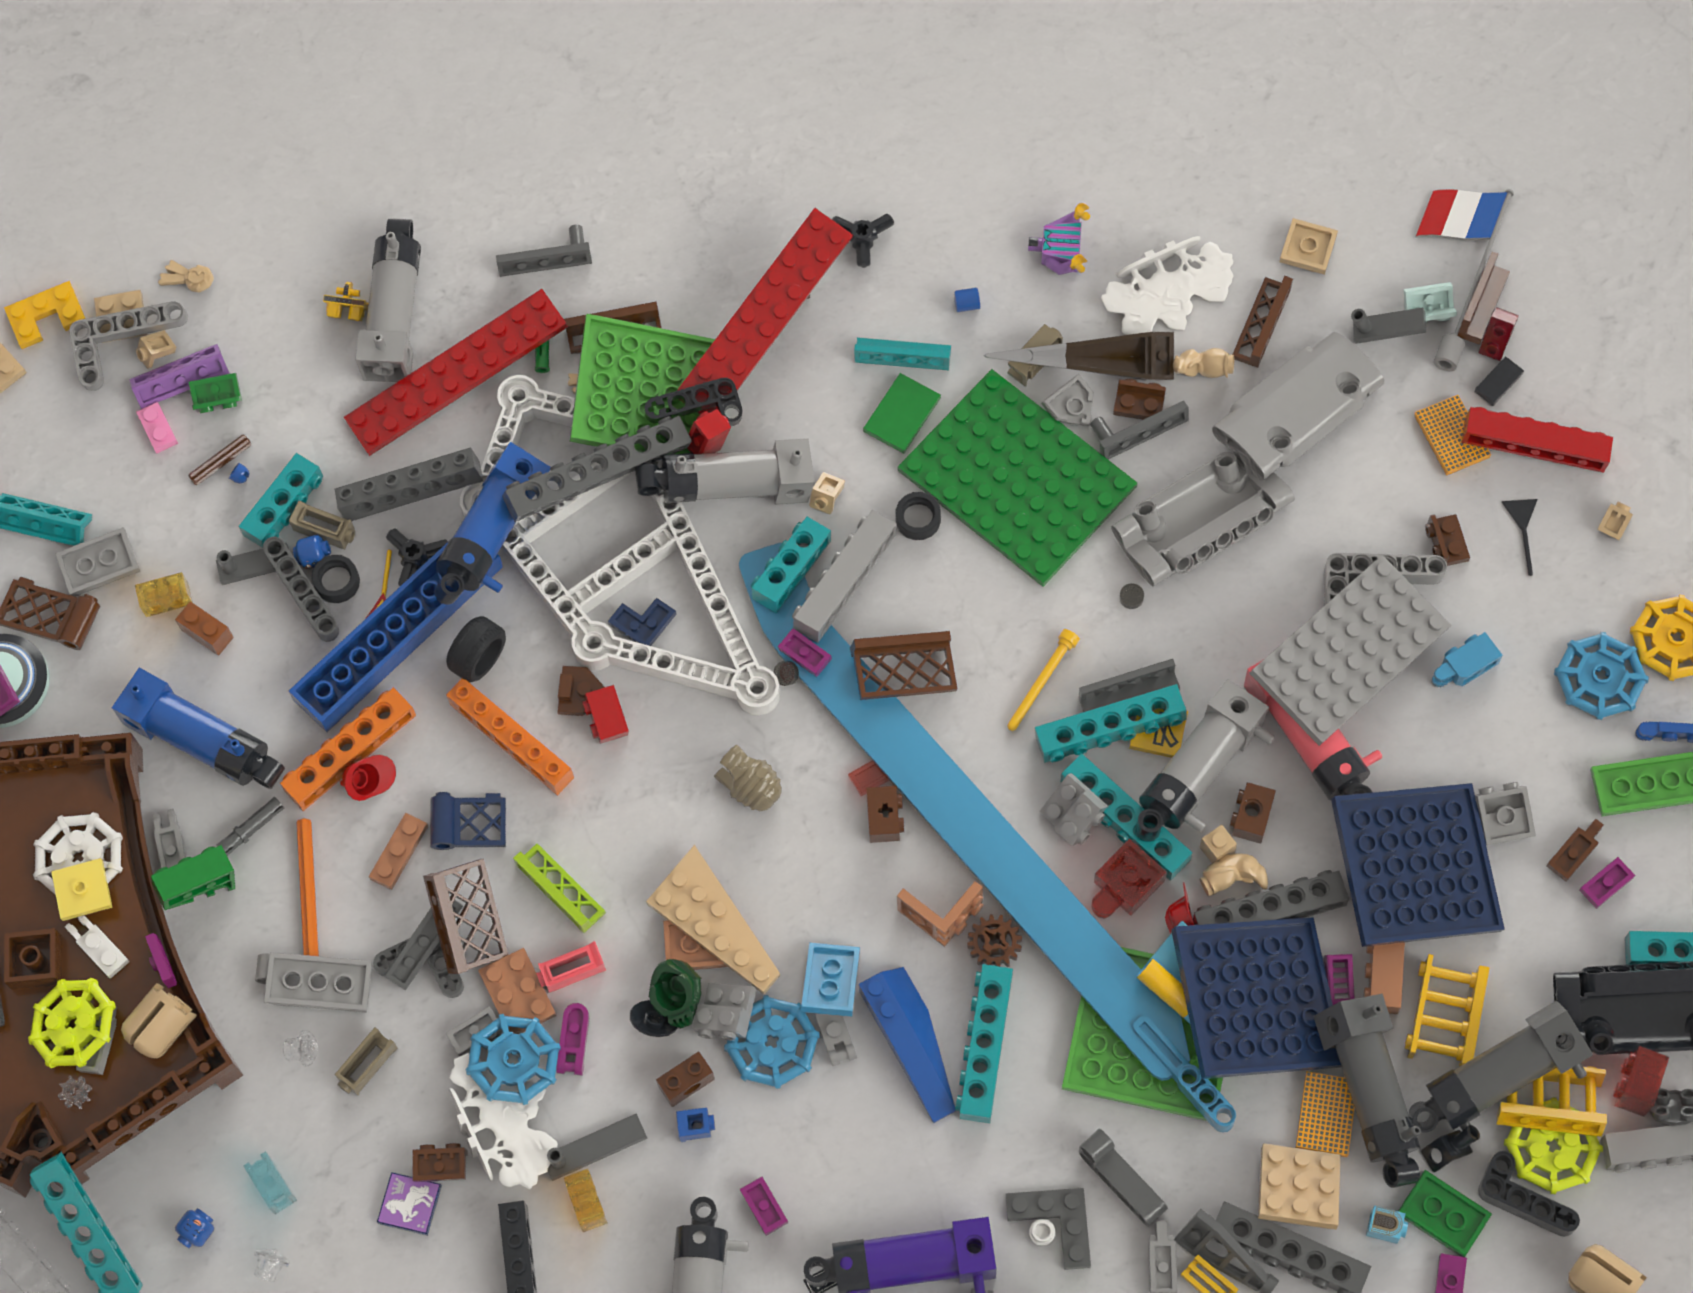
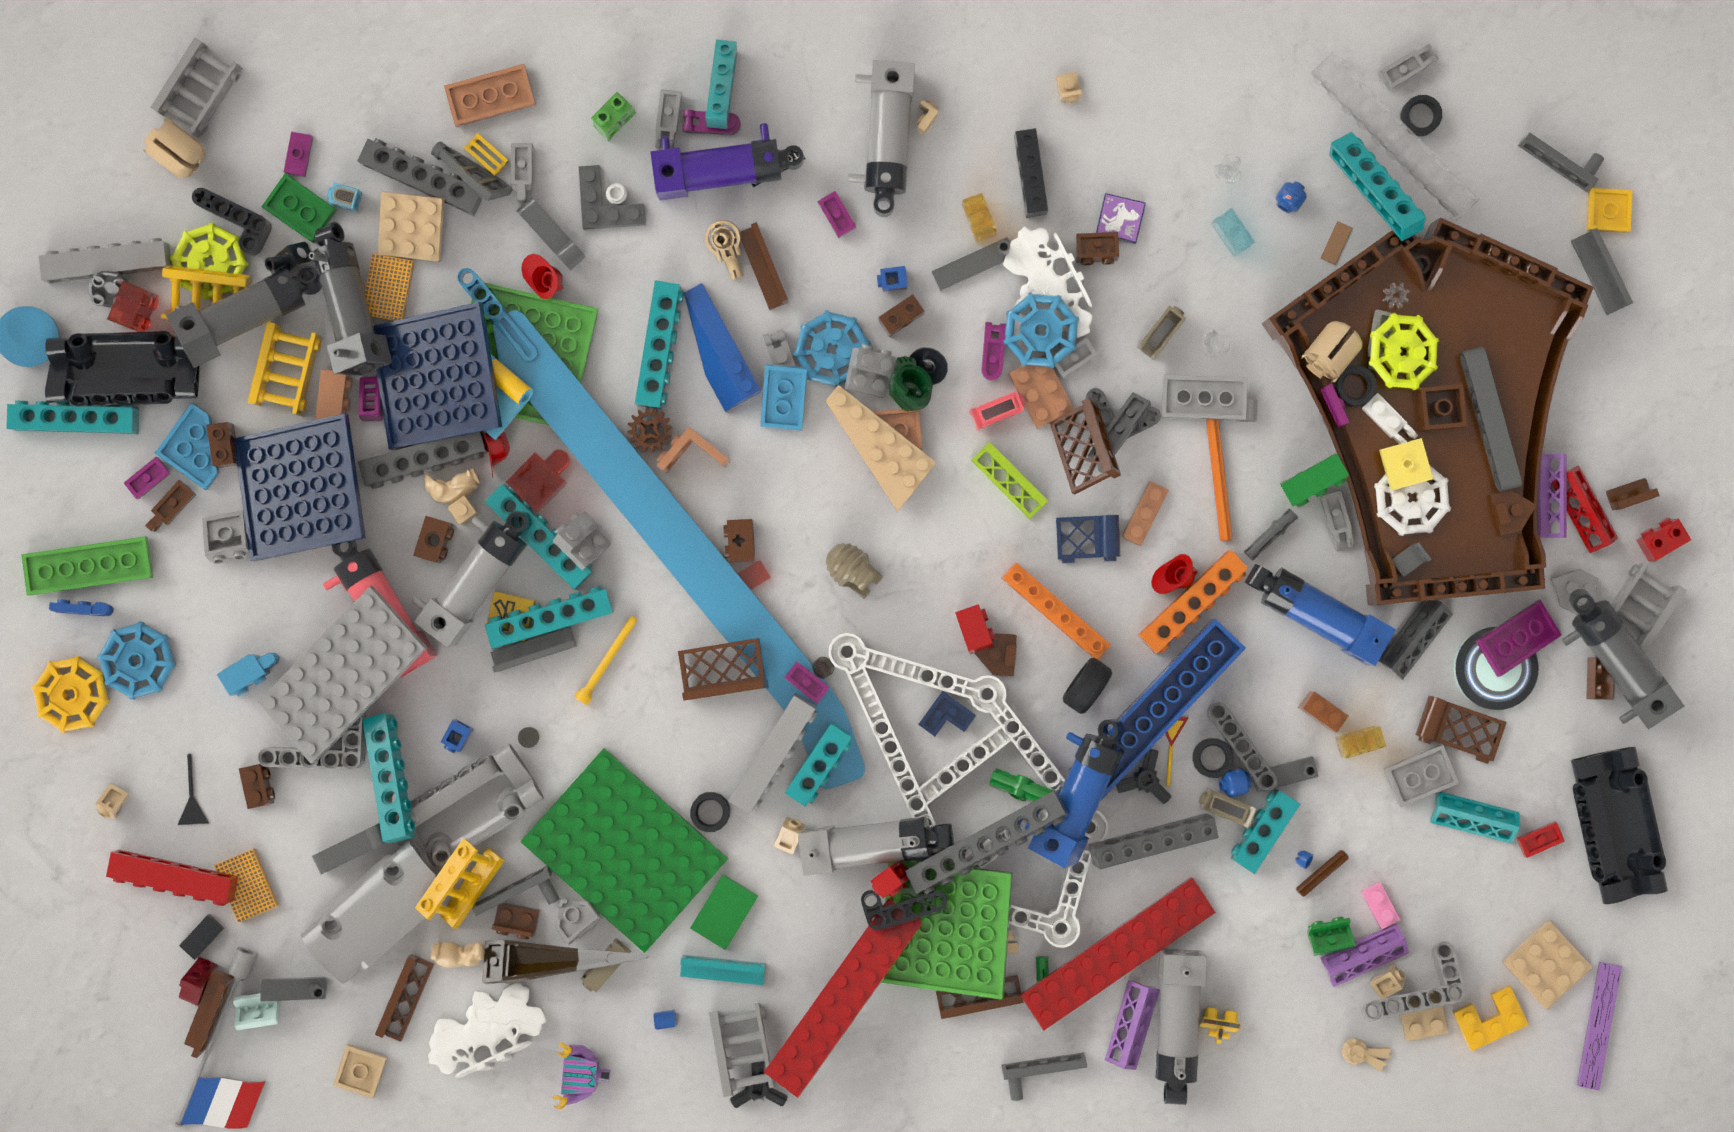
camera: 175 degrees right, 20 degrees up
(88, 785) = (1410, 559): none -> dark grey bracket
(94, 707) = (1413, 634): none -> dark grey fence
(121, 971) = (1371, 384): none -> black tyre
(143, 1176) = (1336, 243): none -> medium nougat sticker
(436, 301) = (1136, 1027): none -> medium lavender fence
(557, 540) = (1018, 786): none -> green piece
(856, 1141) = (763, 267): none -> reddish brown fence
(901, 276) = (722, 1042): none -> light grey fence
(902, 1164) = (725, 242): none -> tan pin
(1130, 1122) = (541, 276): none -> red piece
(1202, 431) = (469, 891): none -> yellow fence
(1211, 602) = (448, 739): none -> blue brick
(1296, 530) = (380, 770): none -> teal brick
(1329, 474) = (349, 849): none -> dark grey beam
(1517, 920) = (221, 444): none -> reddish brown brick
(1555, 918) = (189, 448): none -> dark azure plate

